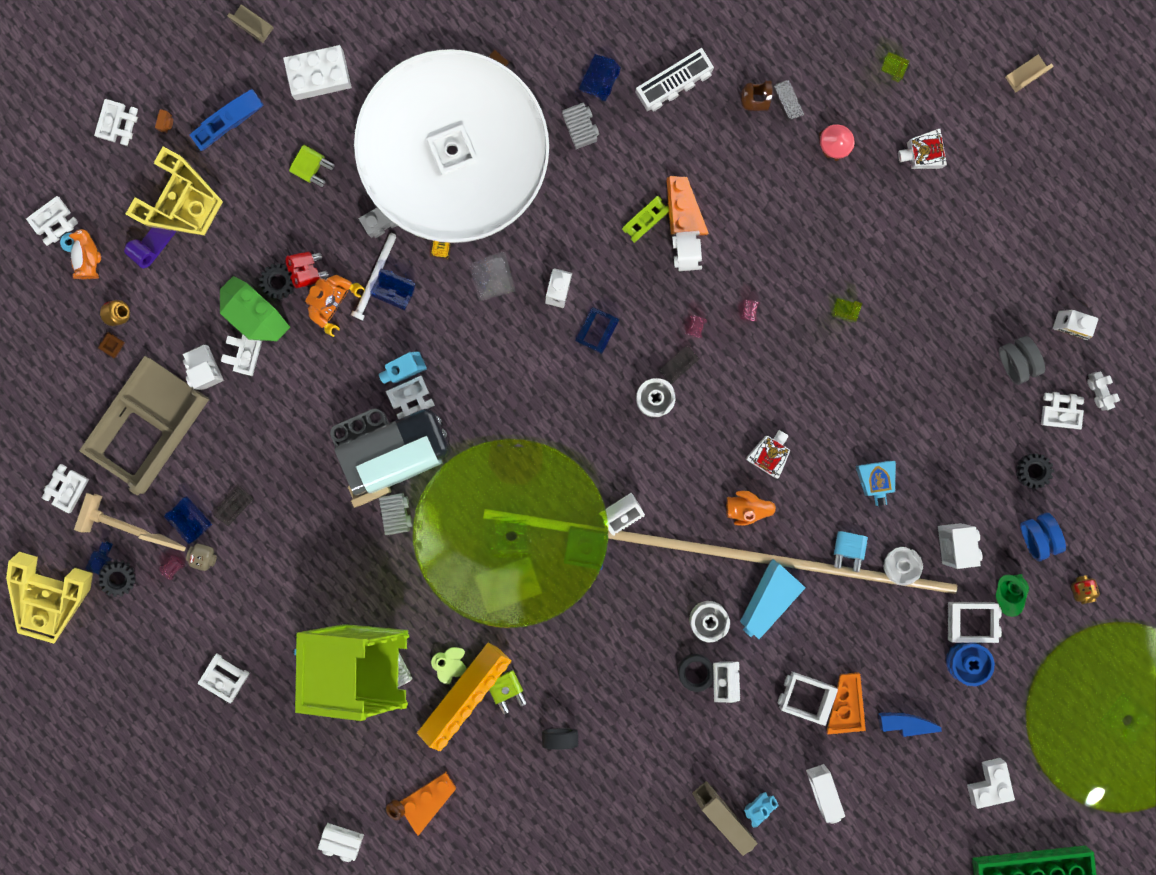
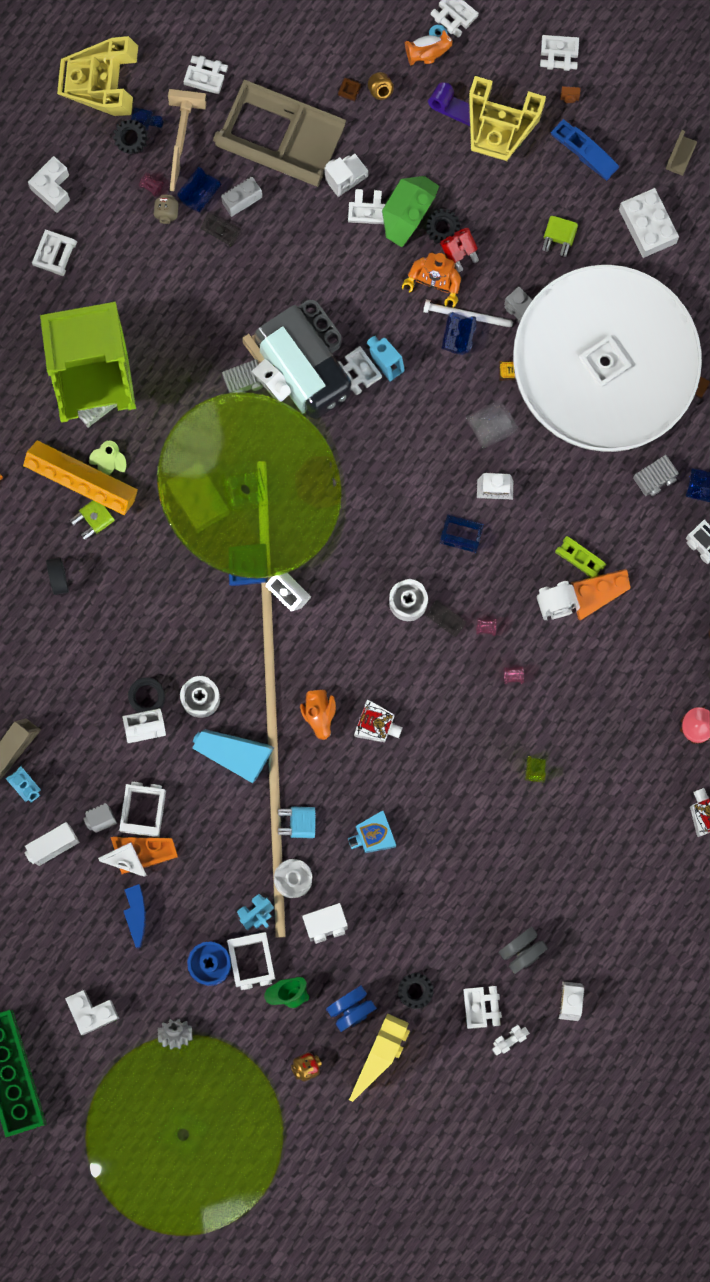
camera: 75 degrees right, 10 degrees down
(150, 673) = (46, 184): none -> white brick
(204, 478) = (241, 196): none -> light grey brick
(412, 485) = (275, 384): none -> white torso
(810, 742) = (99, 818): none -> light grey brick
(853, 724) = (125, 859): none -> white tile
(932, 616) = (258, 915): none -> medium azure hips
(1036, 709) = (174, 1034): none -> light grey gear
(1097, 517) = (382, 1053): none -> light yellow wedge

